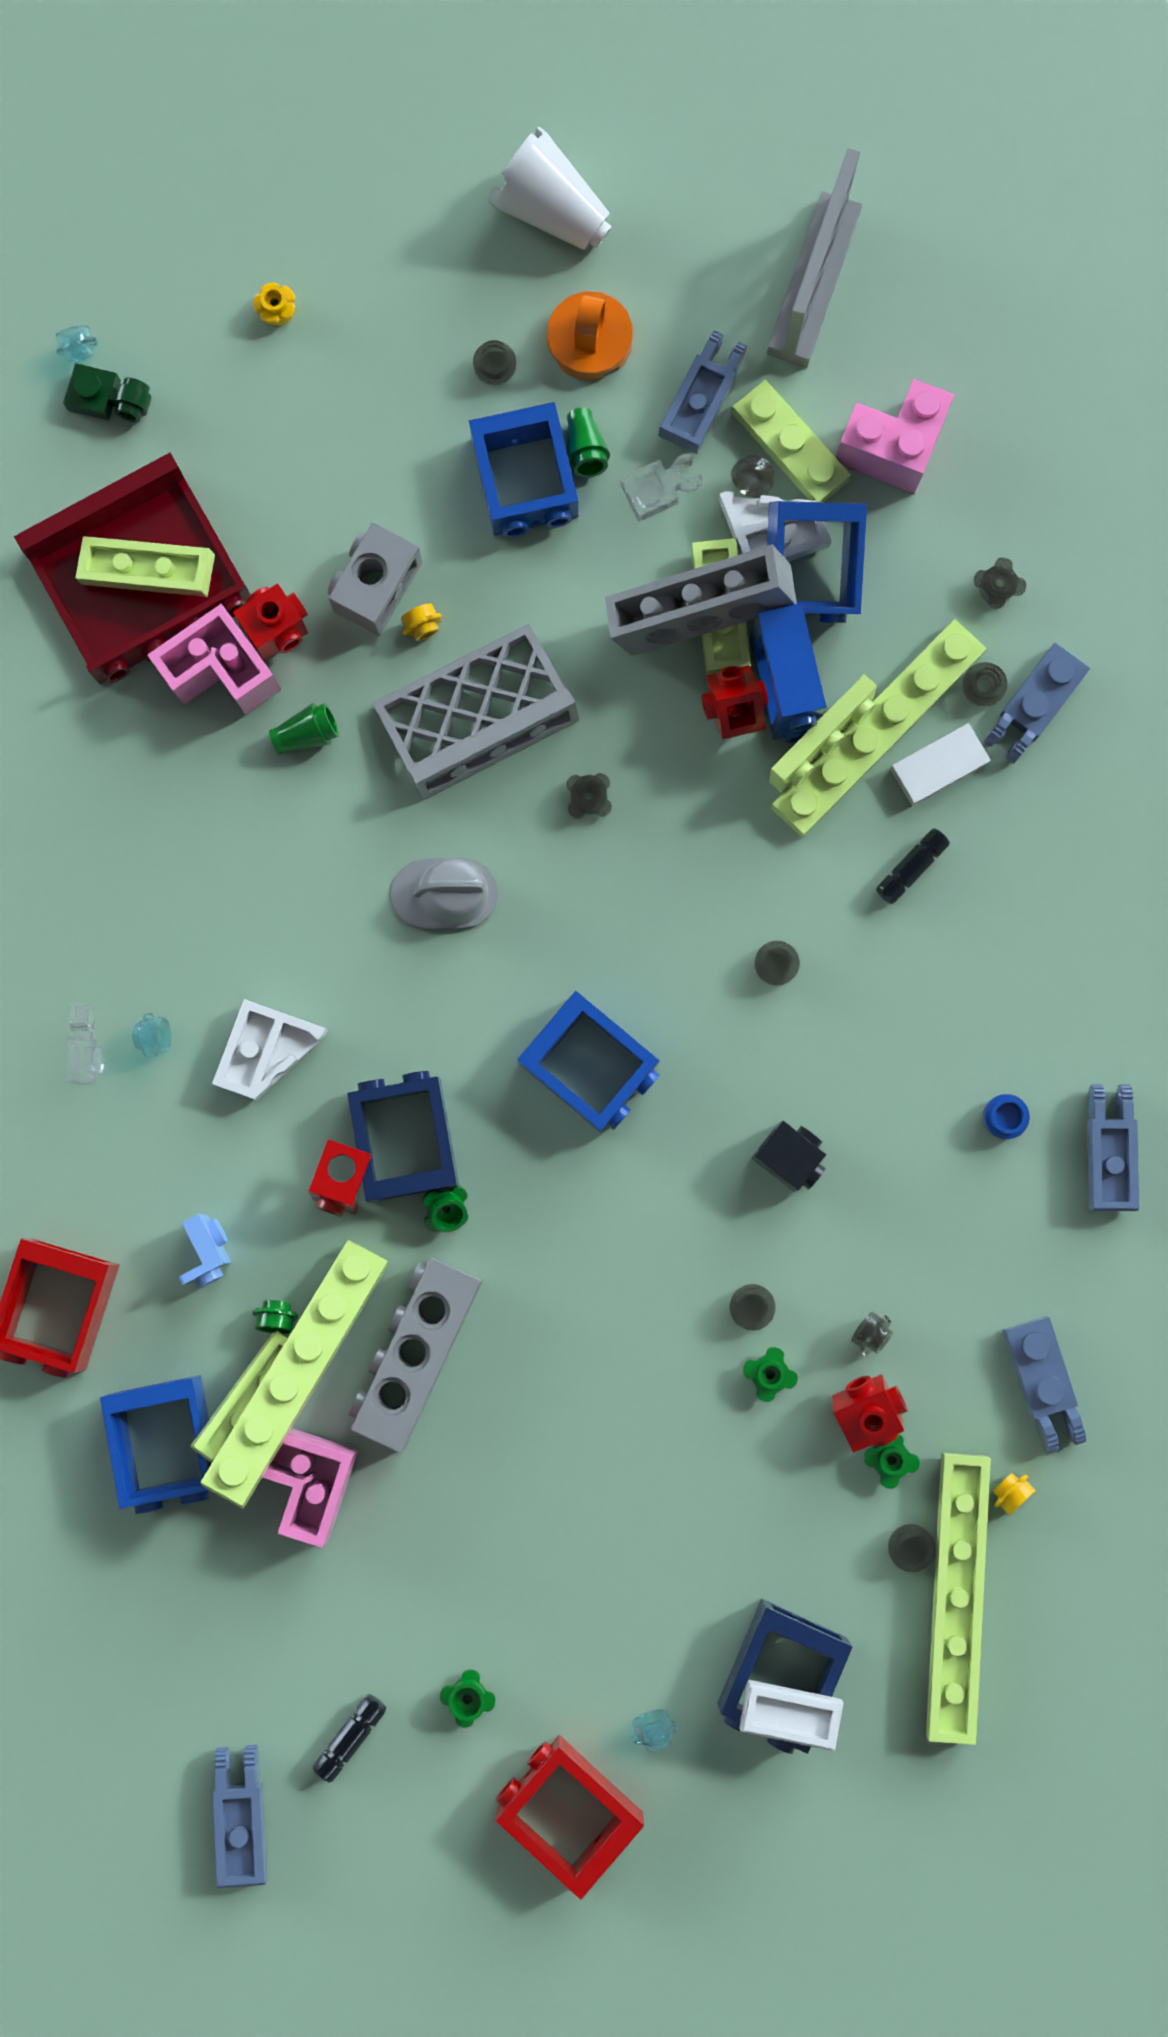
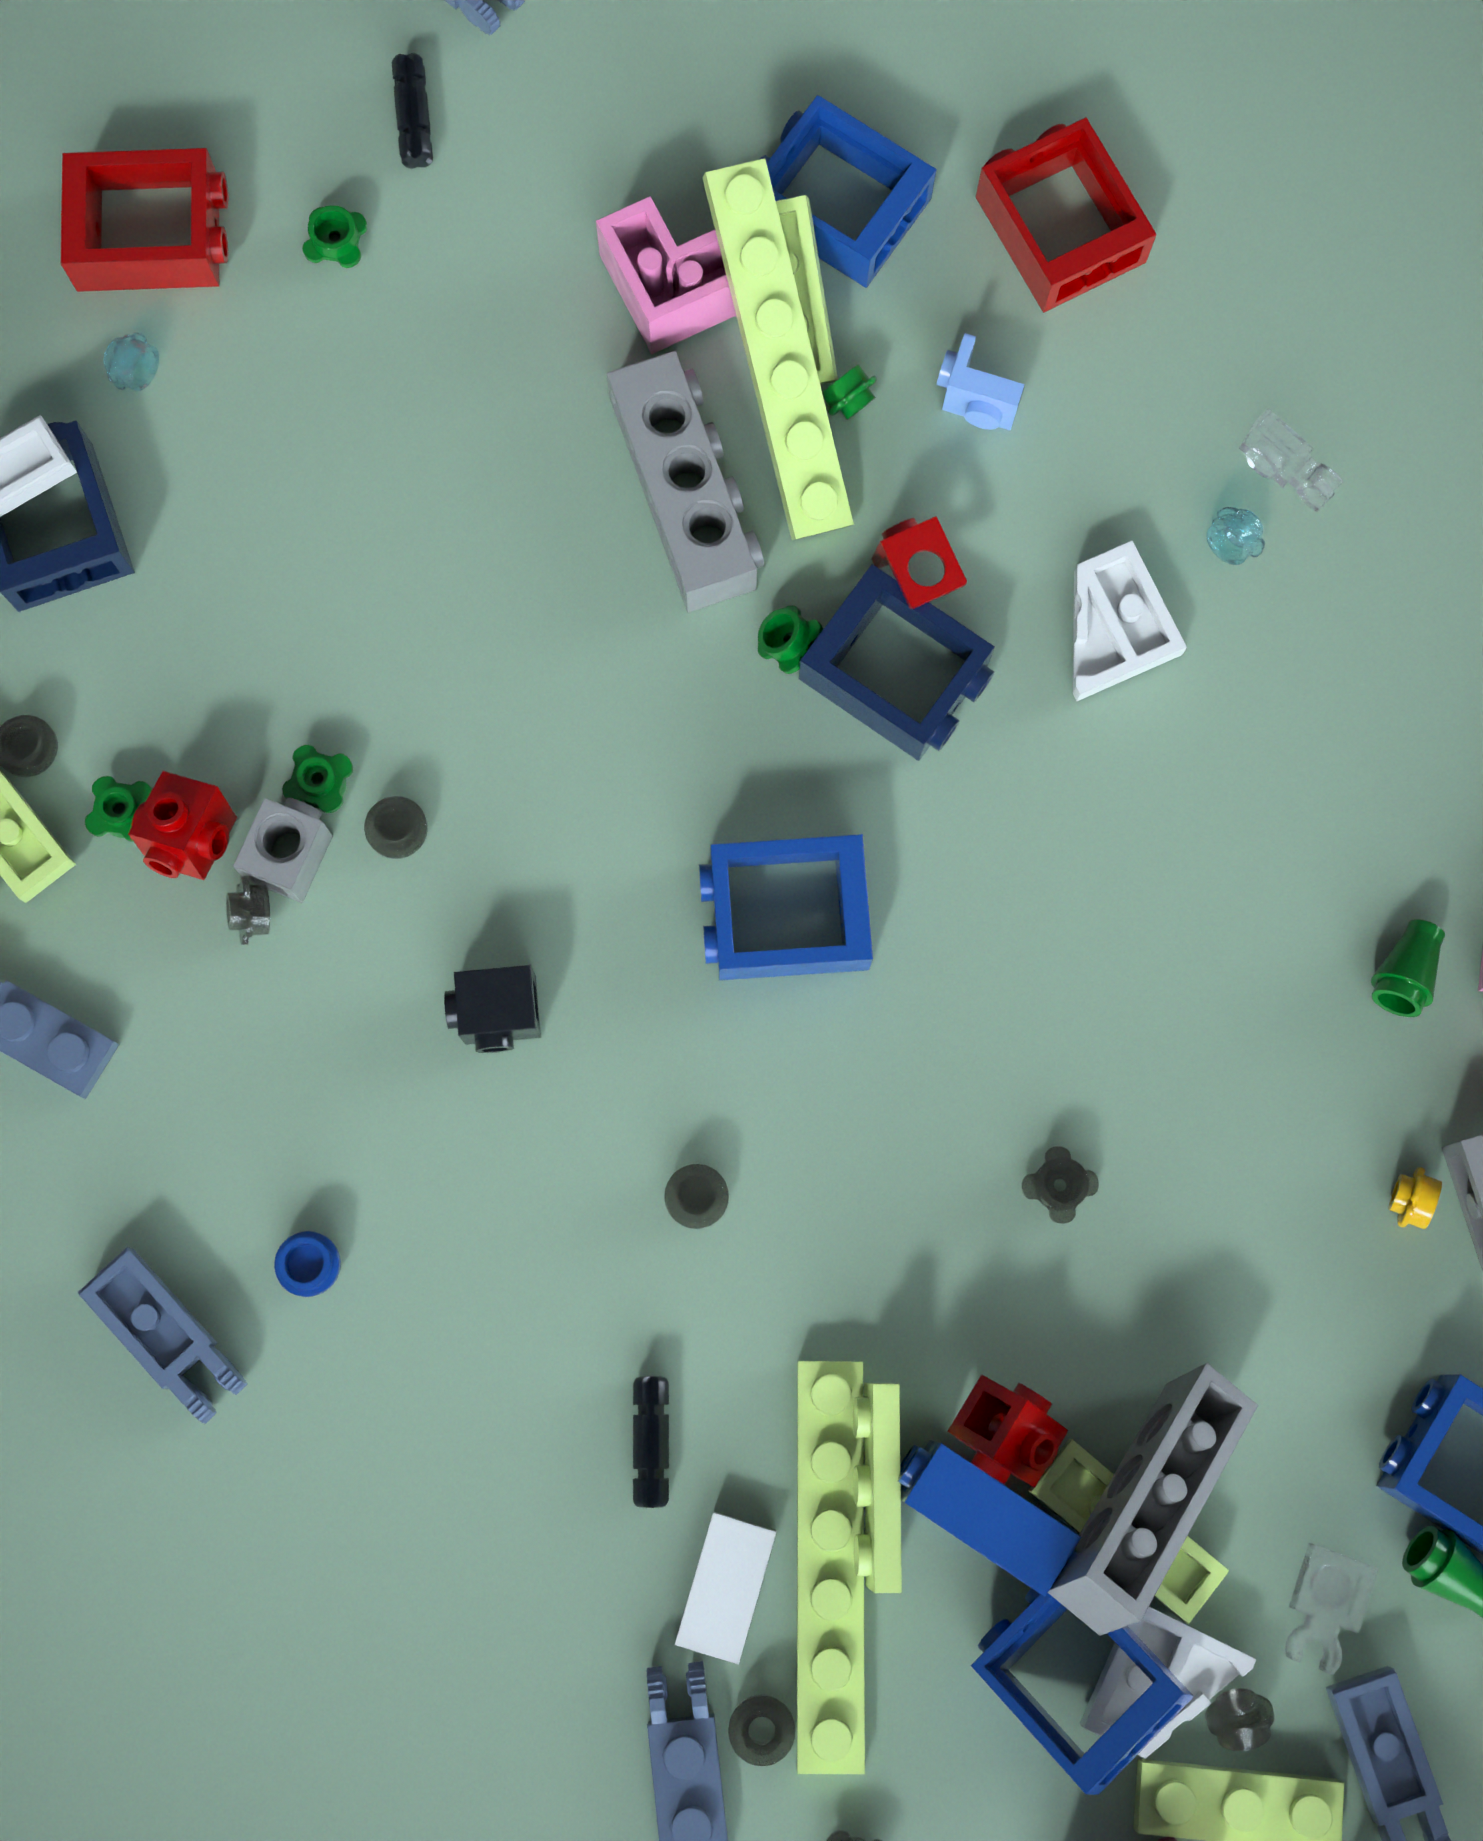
camera: 135 degrees right, 5 degrees down
(444, 893) = (1102, 945): light grey piece -> none
(484, 745) = (1211, 1148): light grey fence -> none
(844, 1350) = (287, 875): none -> light grey brick

